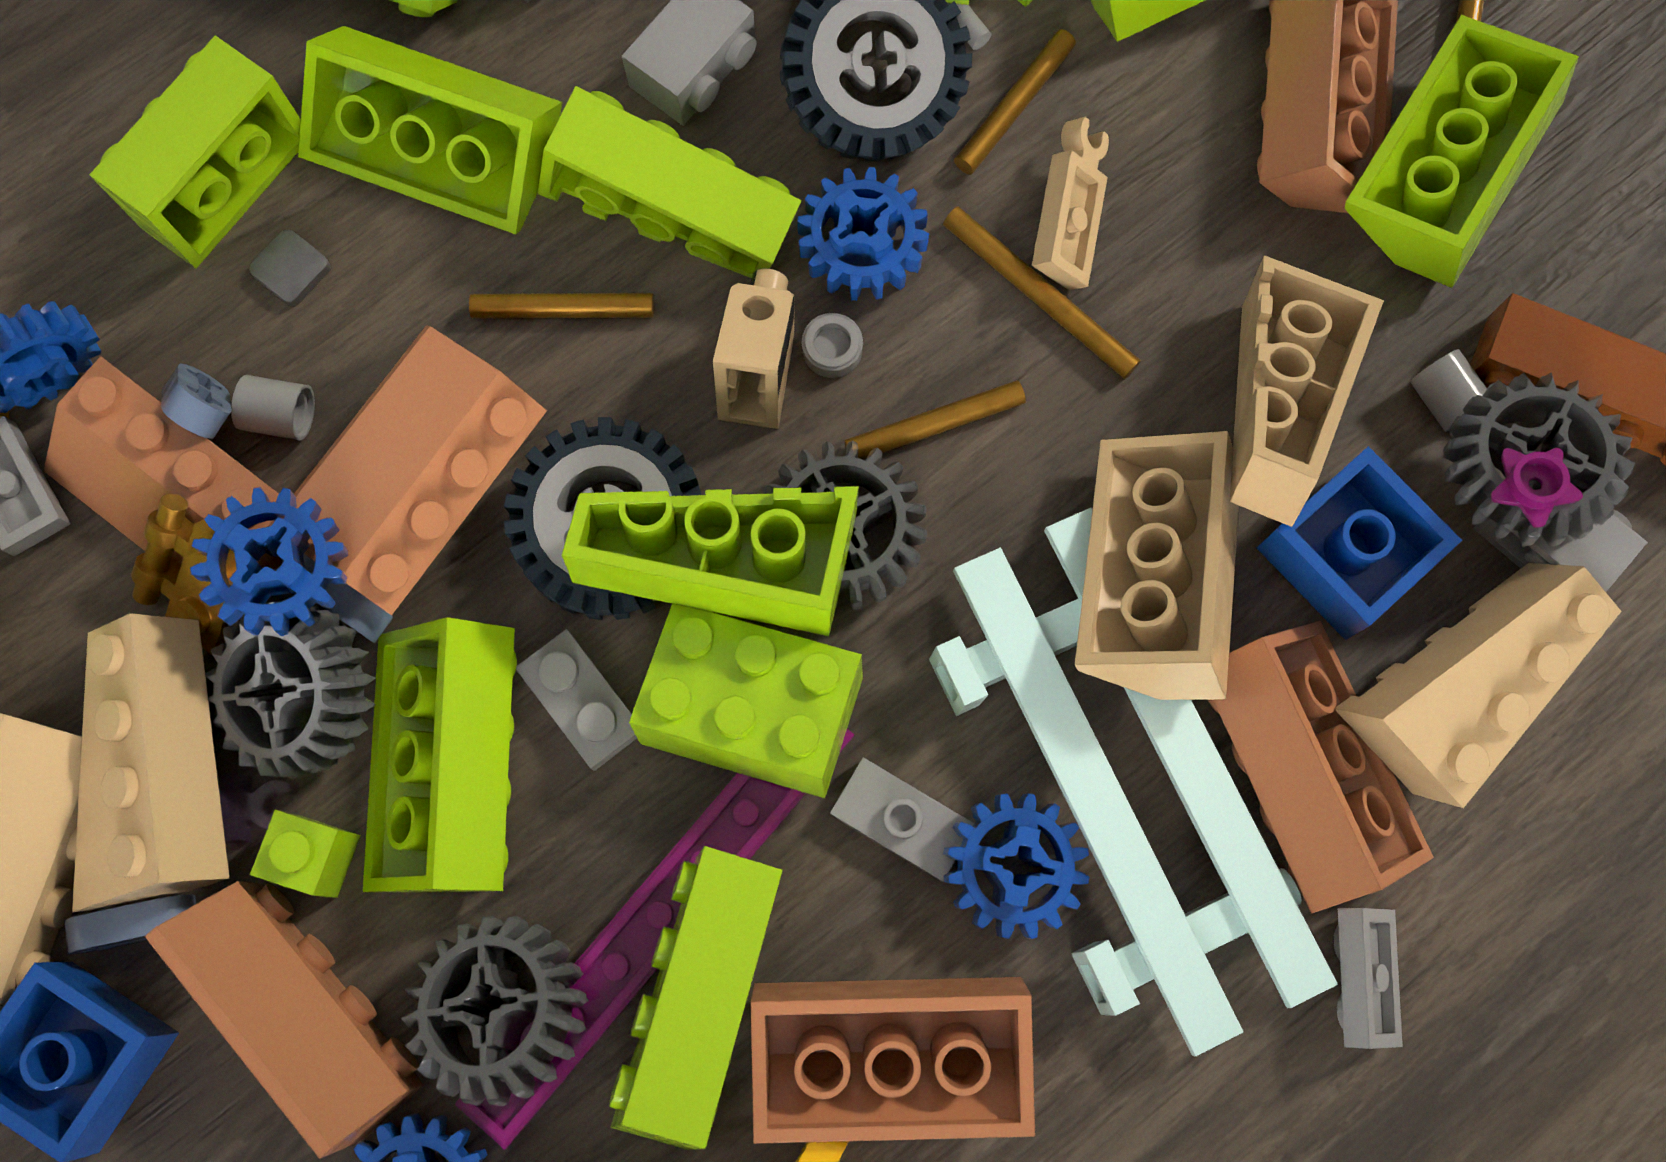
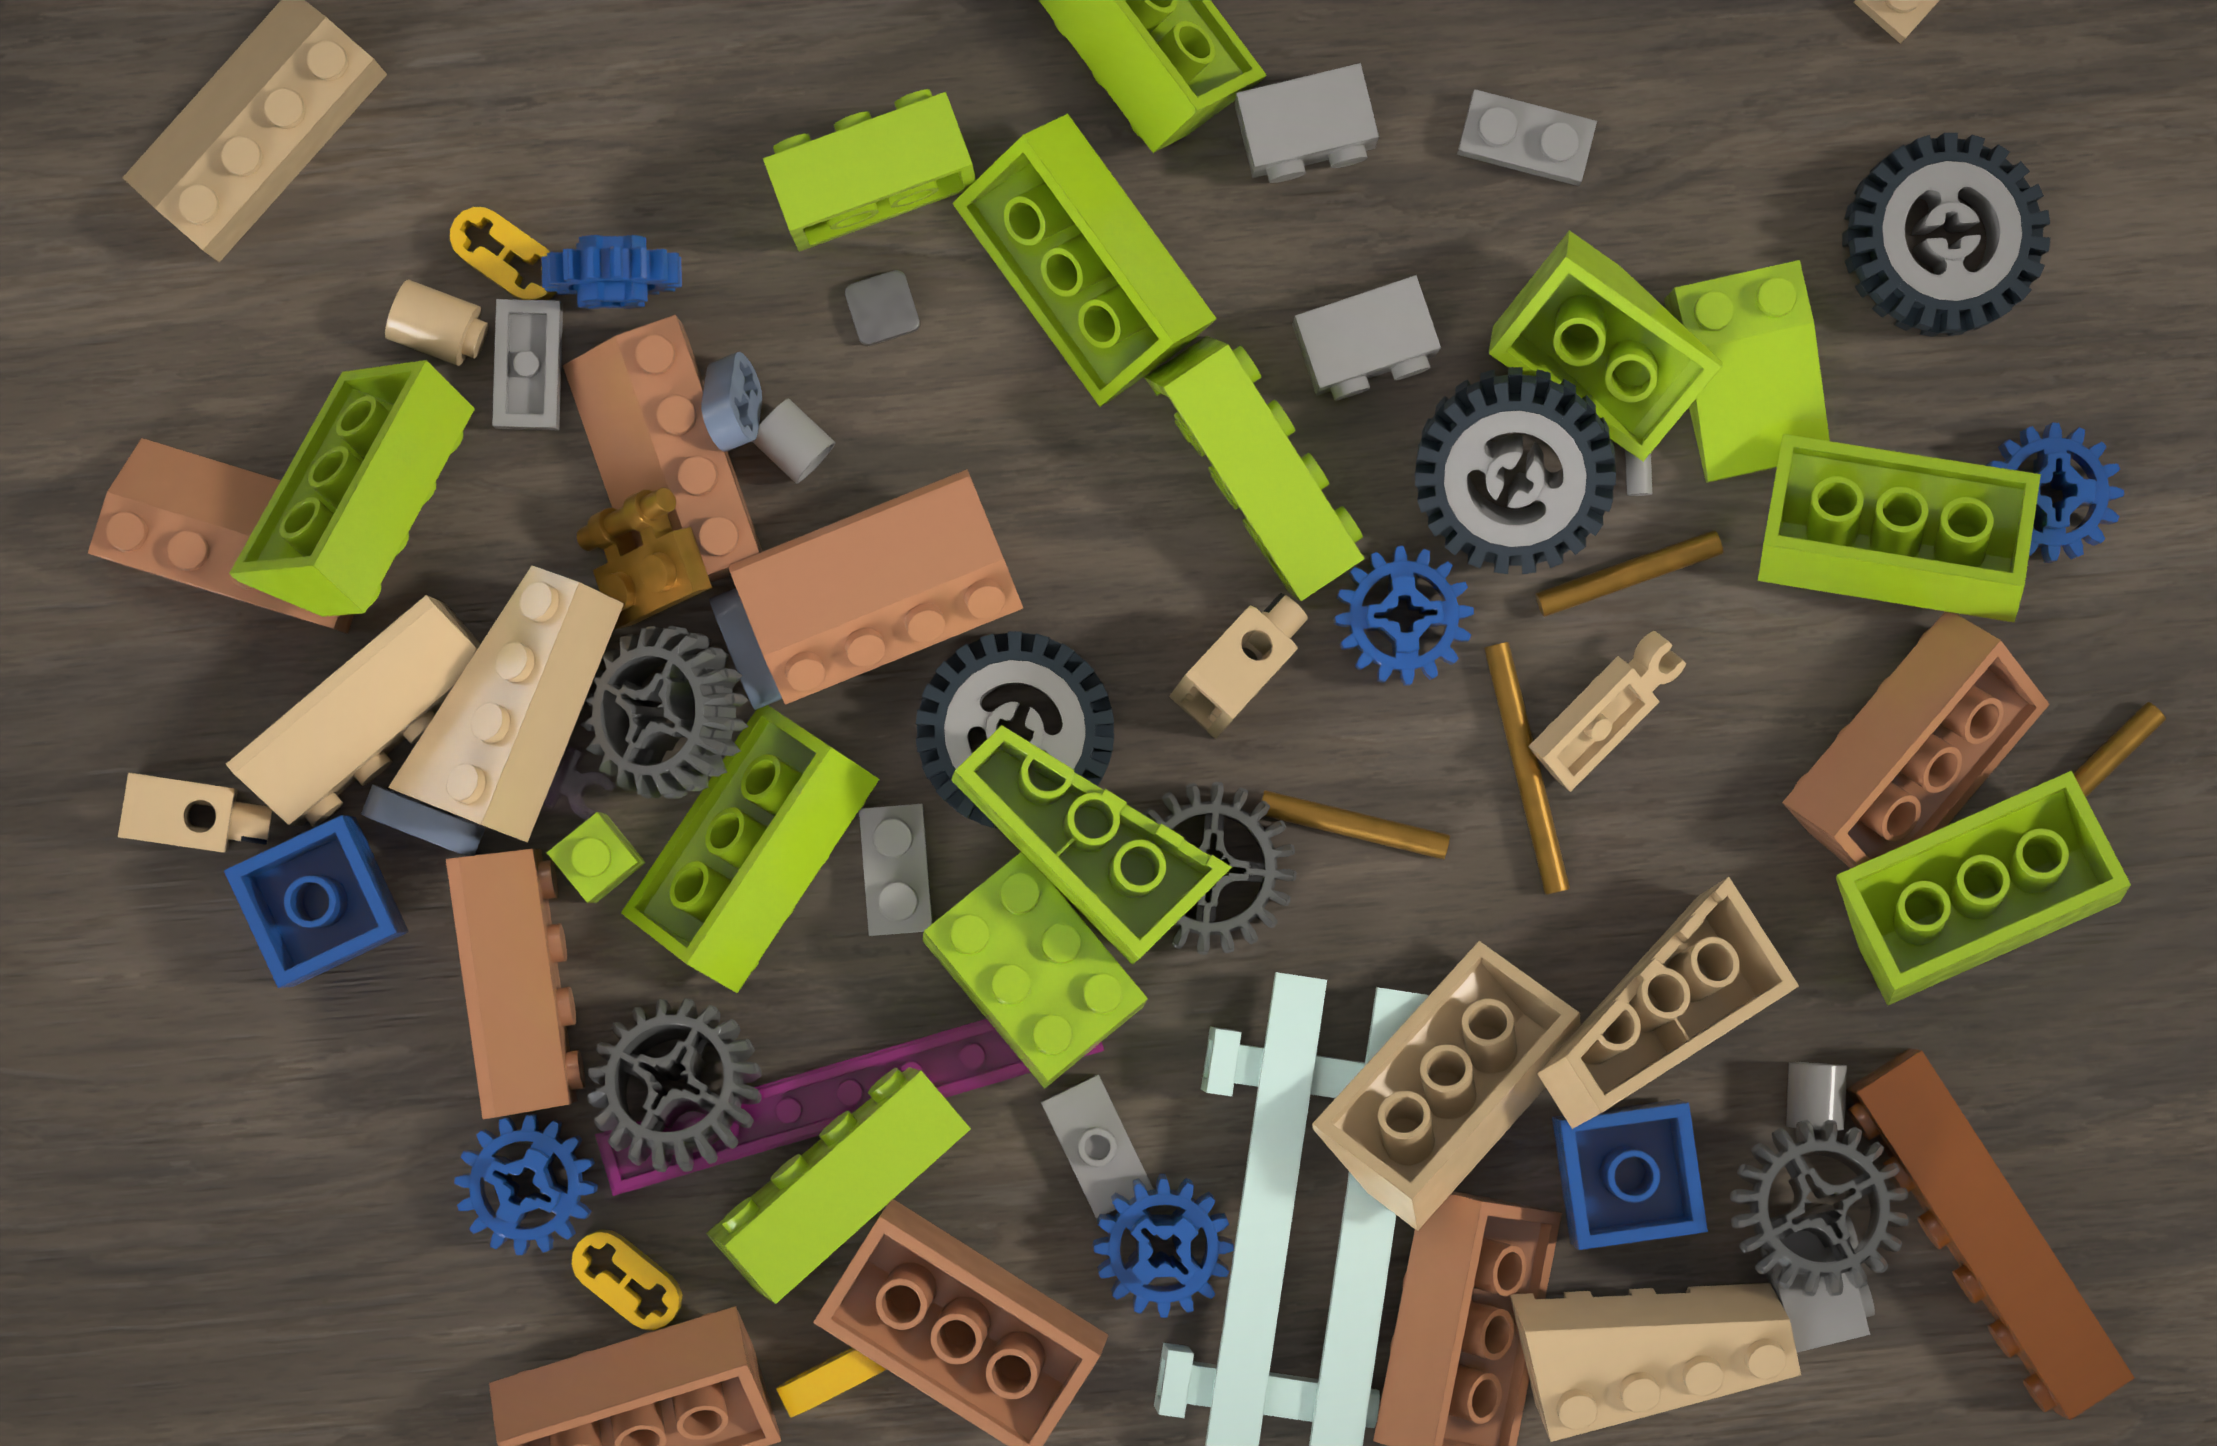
camera: 30 degrees right, 10 degrees up
(253, 583) = (729, 642): blue gear -> none
(562, 305) = (1099, 504): pearl gold bar -> none
(832, 345) = (1311, 696): light grey tile -> none
(1548, 471) = (1806, 1226): magenta plate -> none

